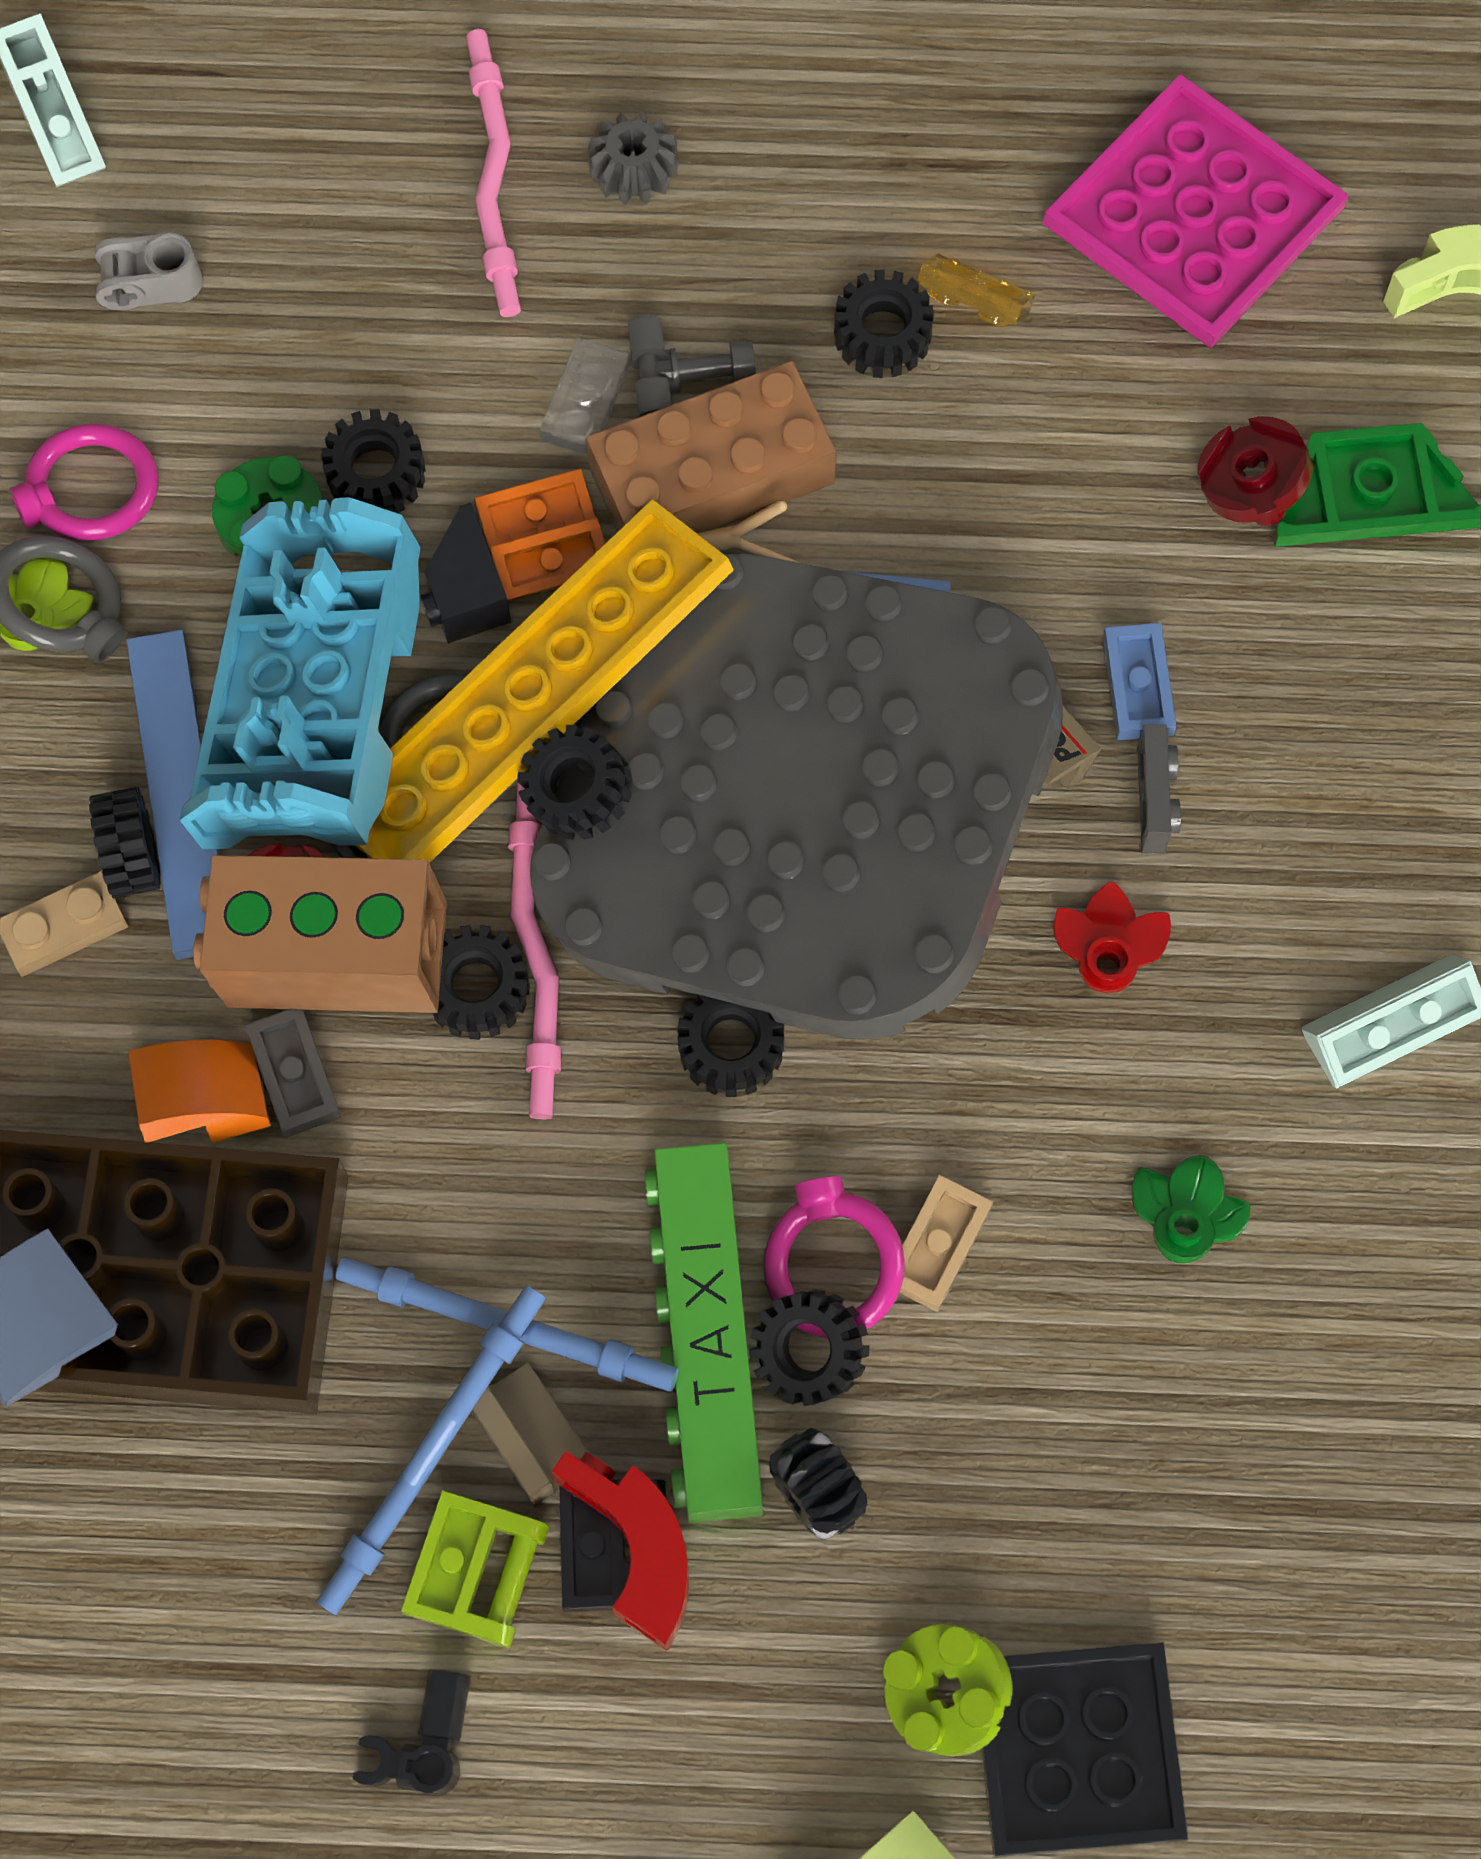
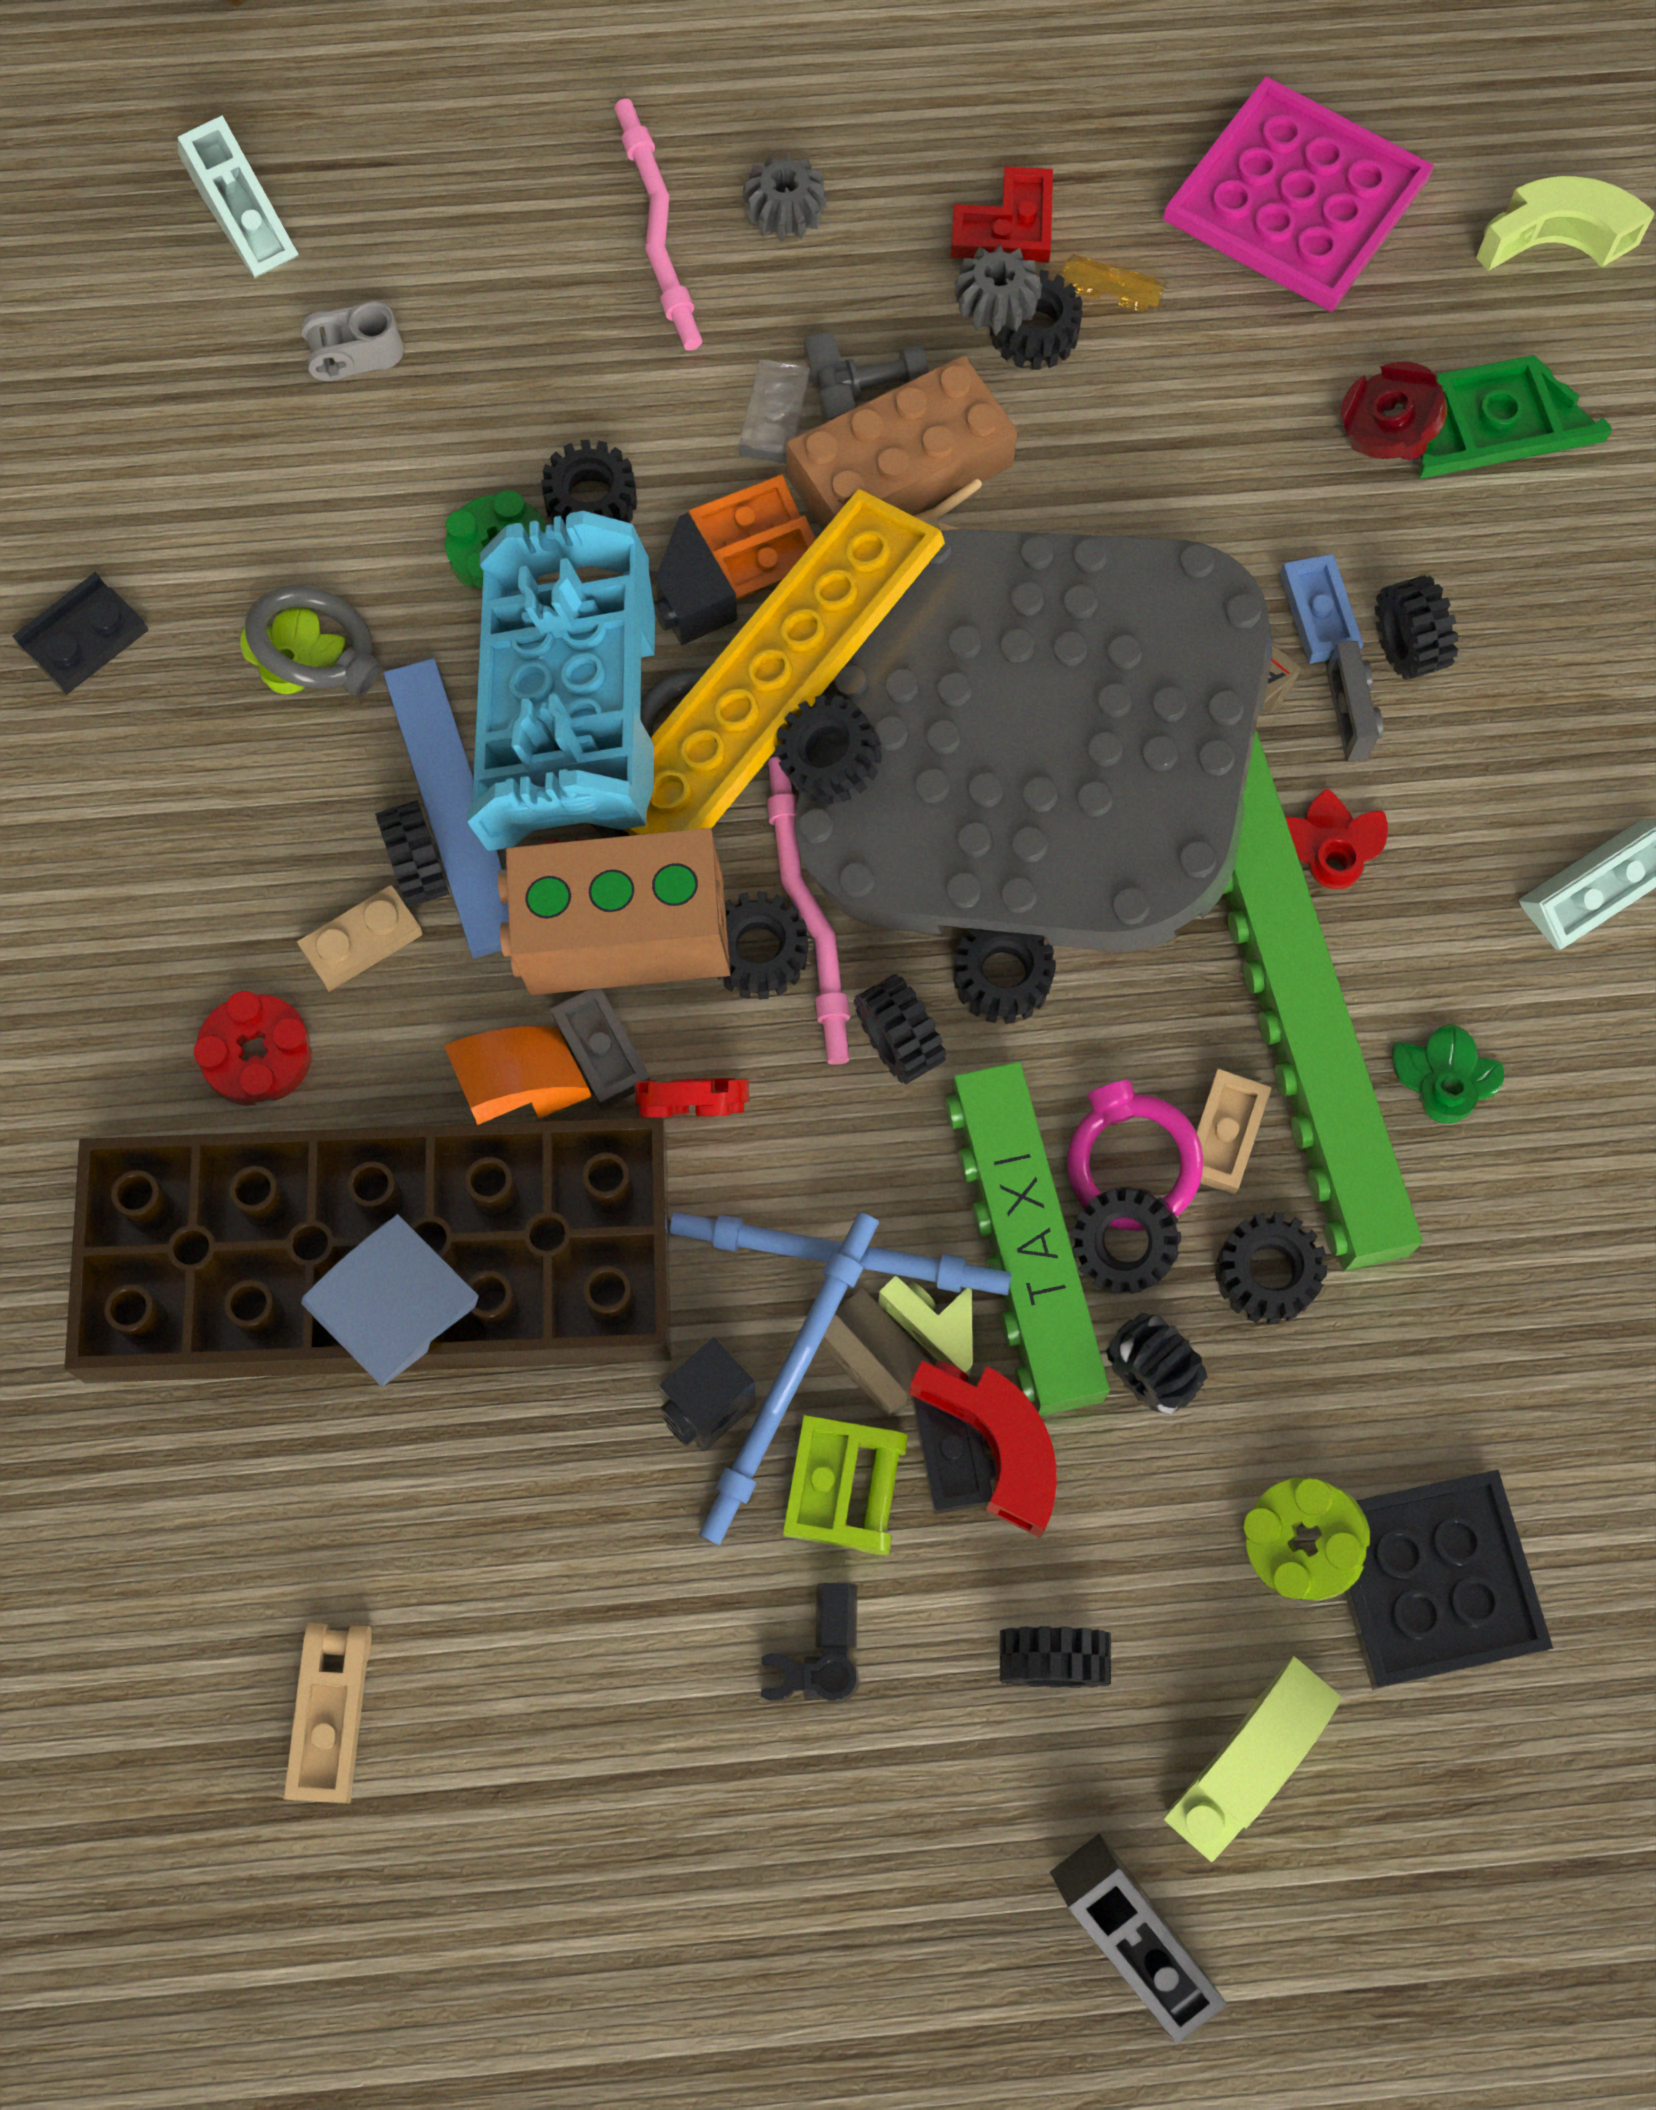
camera: 10 degrees left, 0 degrees up
(37, 505) = (279, 558): dark pink piece -> none
(339, 1459) = (706, 1396): none -> black brick
(388, 1138) = (708, 1095): none -> red plate
(603, 1424) = (942, 1336): none -> yellowish green slope
(606, 1092) = (900, 1029): none -> black tyre
(659, 1779) = (1055, 1657): none -> black tyre
(840, 291) = (997, 289): none -> dark grey gear
(872, 222) = (1020, 222): none -> red plate
(966, 1359) = (1294, 1244): none -> black tyre
(1045, 1140) = (1314, 1039): none -> bright green brick
(1234, 716) = (1416, 627): none -> black tyre

